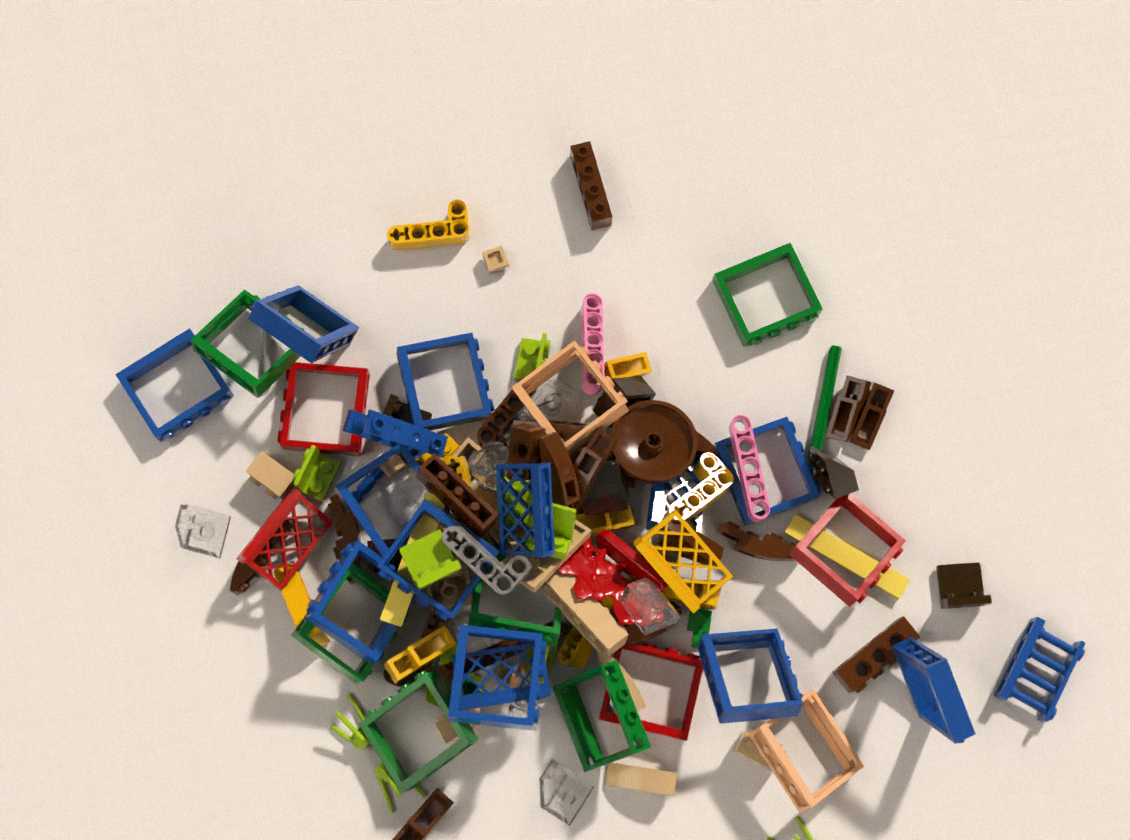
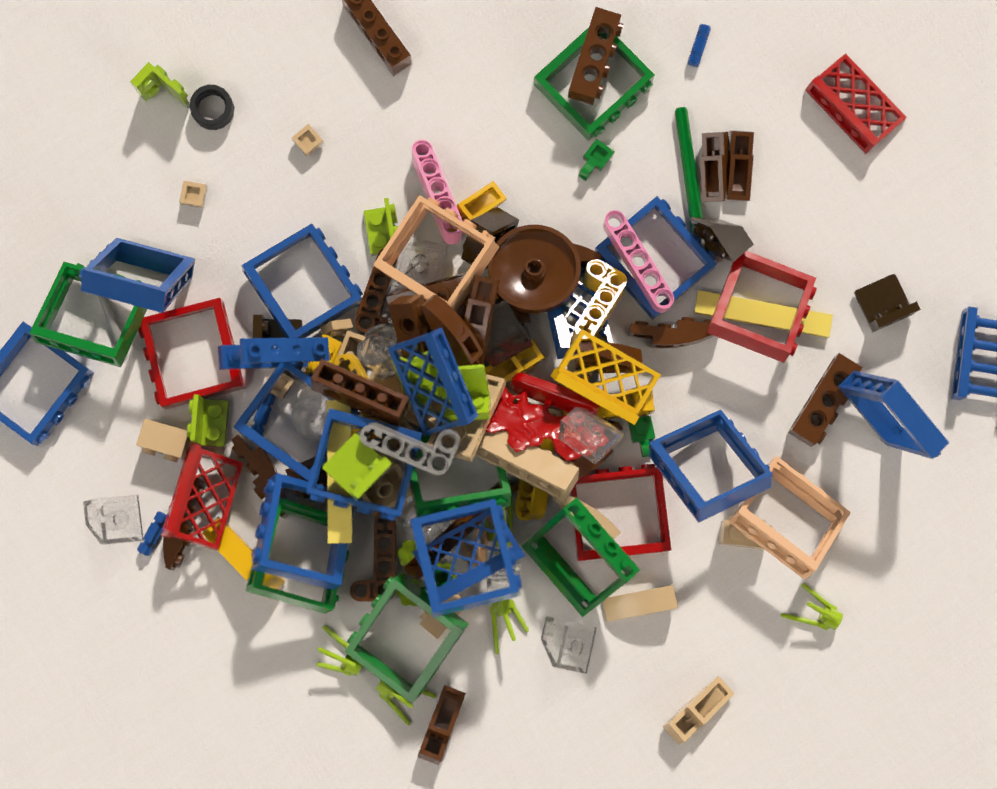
camera: 20 degrees left, 5 degrees up
(229, 555) = (152, 534): none -> blue axle
(378, 160) = (151, 78): none -> lime bracket
(378, 271) = (193, 194): none -> tan plate
(419, 654) = (379, 562): yellow slope -> none
(423, 186) = (206, 91): none -> black tyre
(429, 228) = (228, 133): yellow beam -> none
(460, 432) = (336, 328): none -> tan plate
(515, 737) = (504, 608): none -> lime plant
(744, 363) = (596, 157): none -> green plate
(791, 246) = (601, 22): none -> reddish brown brick
(872, 297) = (699, 45): none -> blue axle
(982, 407) = (844, 113): none -> red fence

